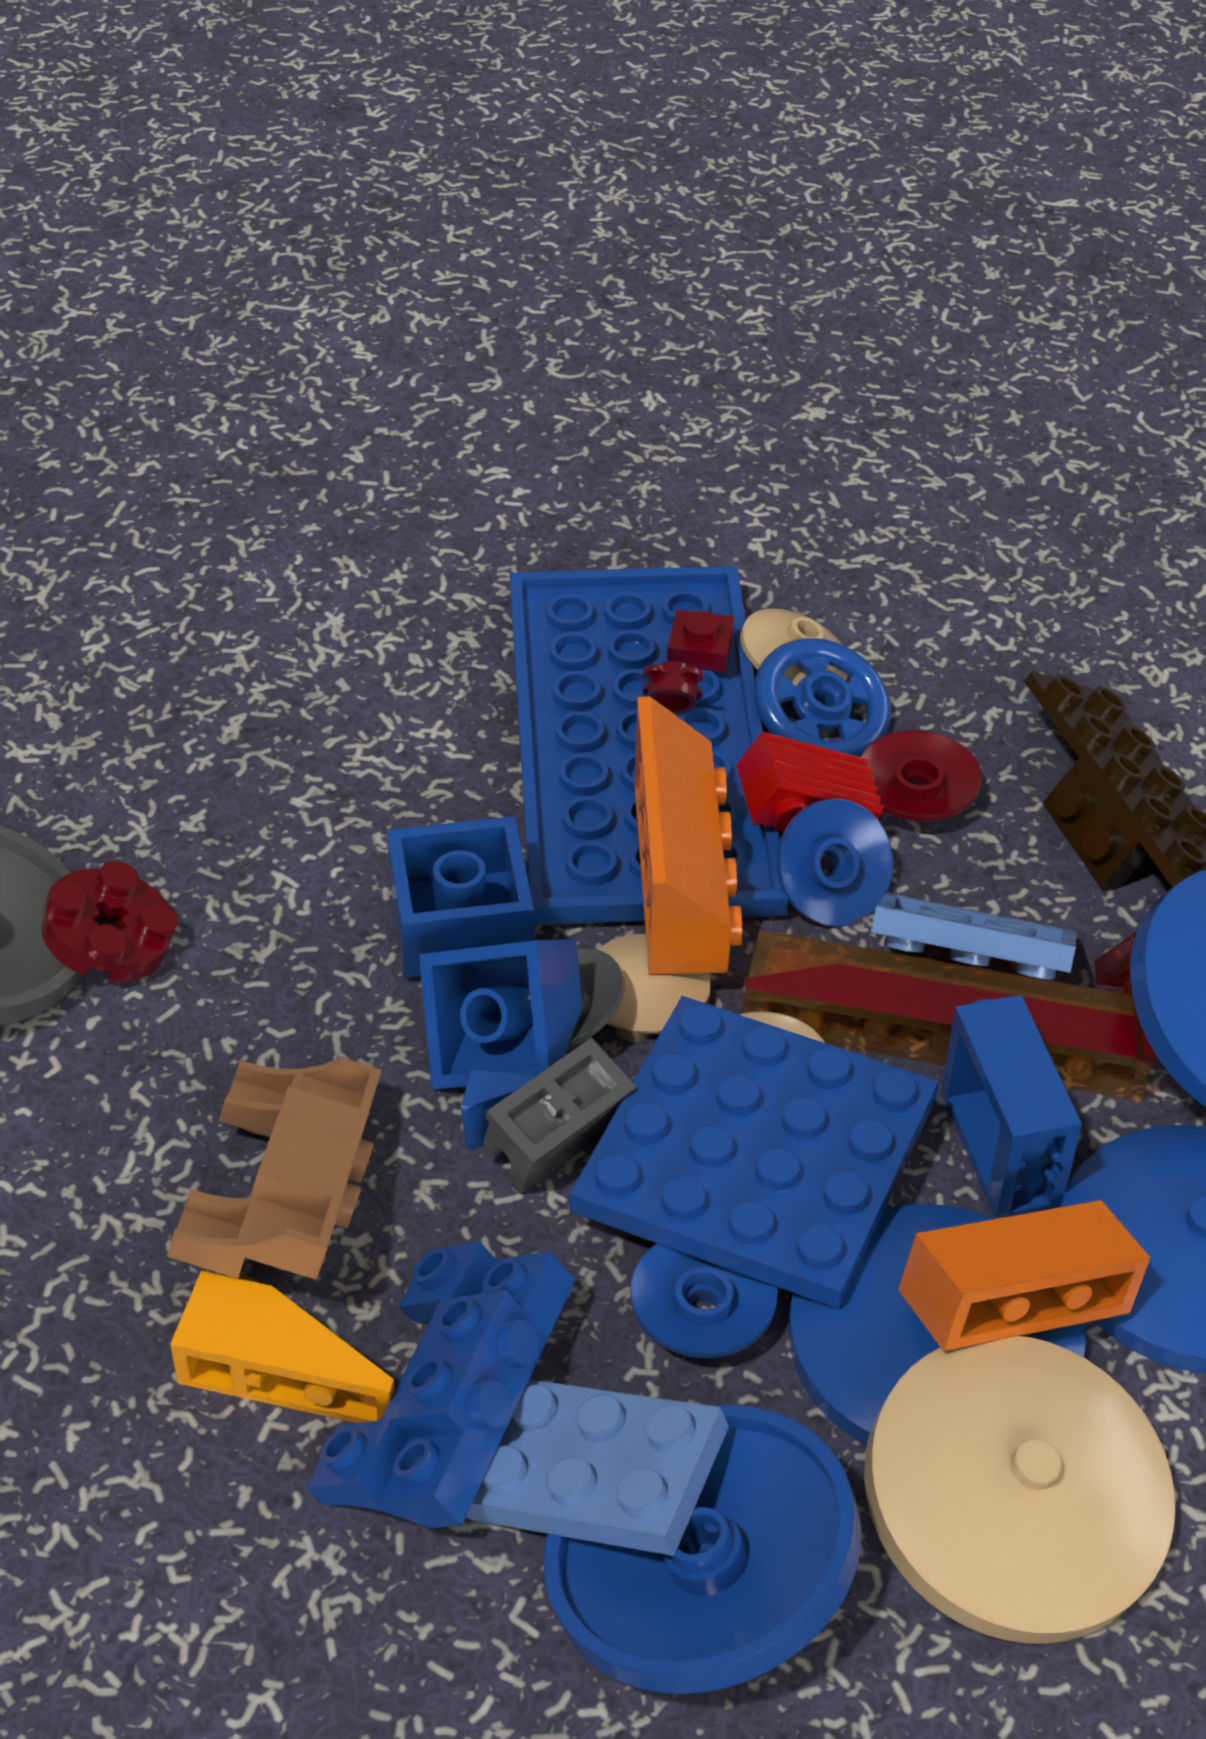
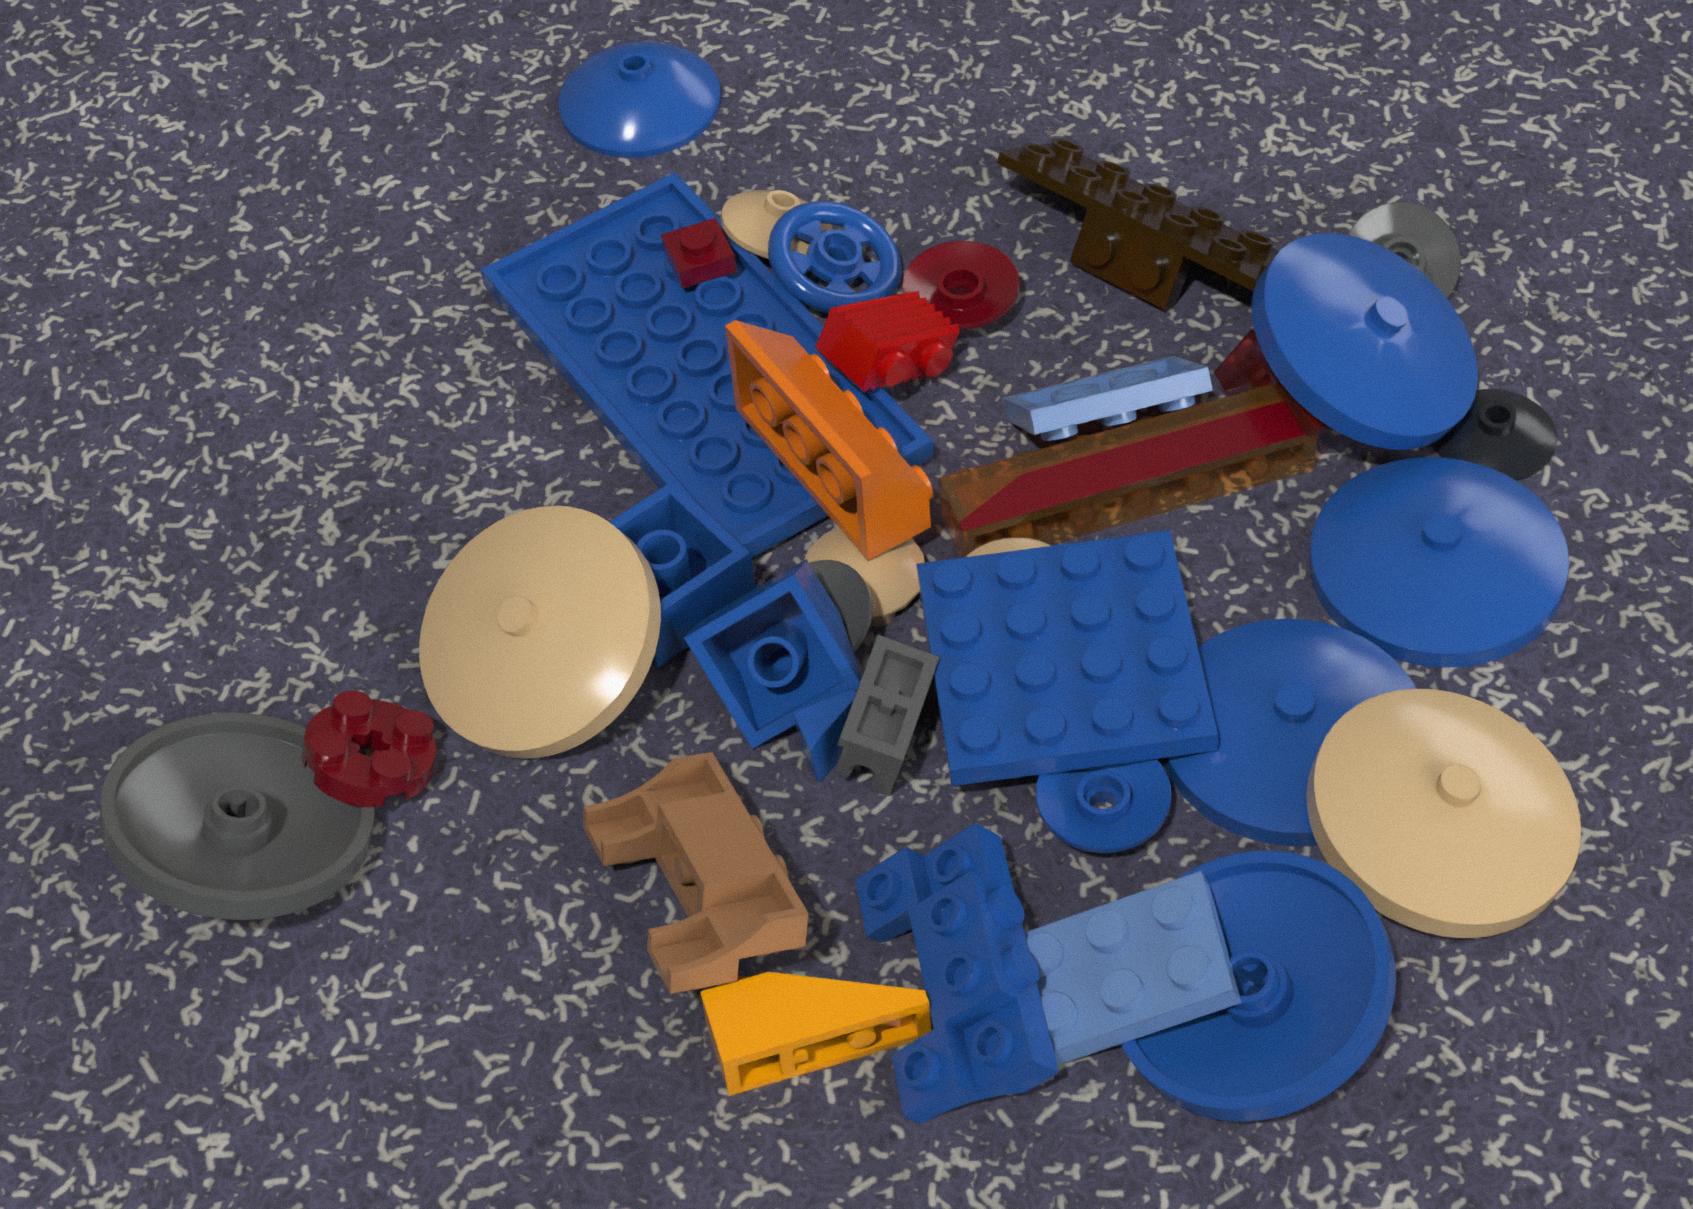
camera: 25 degrees left, 5 degrees up
(312, 892) = (539, 632): none -> tan dish
(673, 685) = (711, 305): dark red plate -> none
(762, 496) = (639, 99): none -> blue dish
(858, 862) = (950, 391): blue dish -> none
(1009, 1106) = (1283, 519): blue window -> none
(1022, 1274) = (1348, 647): orange brick -> none

